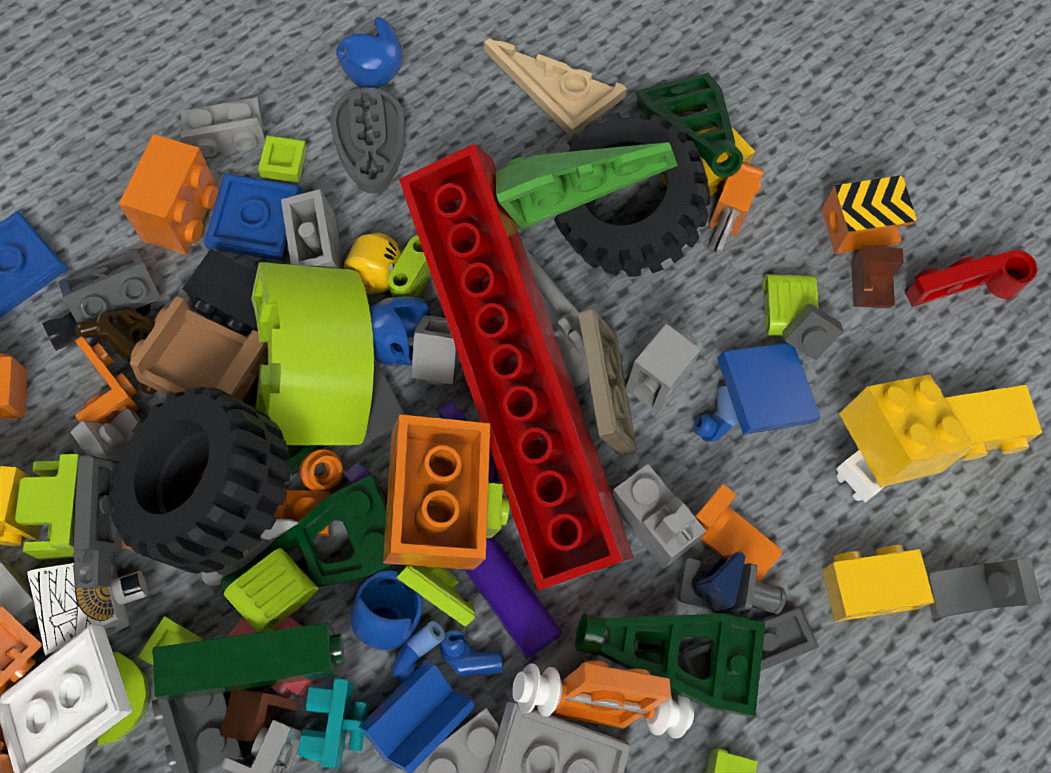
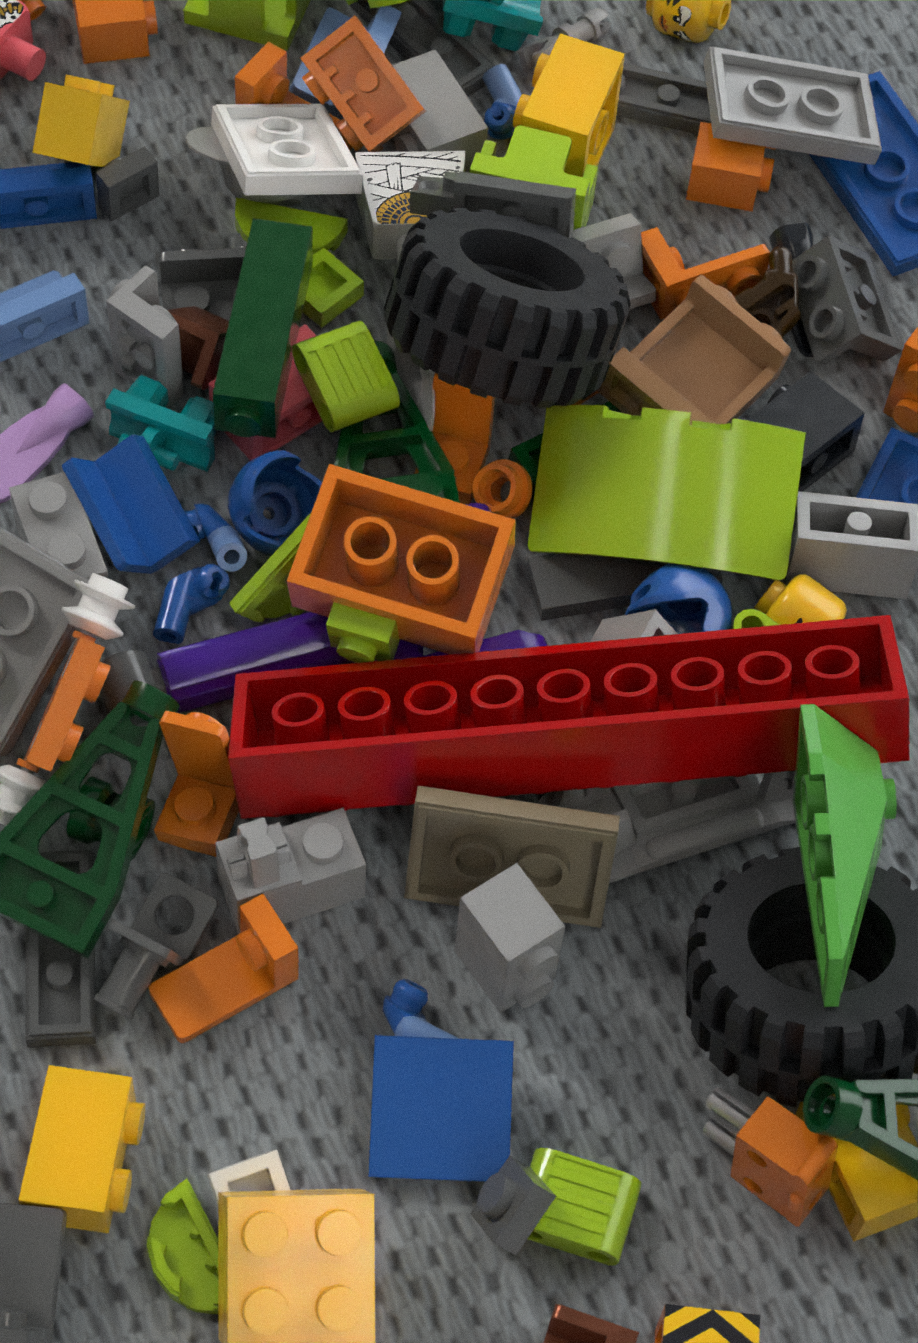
camera: 105 degrees right, 10 degrees down
(621, 593) = (203, 795): none -> orange bracket
(722, 581) = (164, 918): dark blue slope -> none
(900, 507) = (185, 1250): none -> lime tile

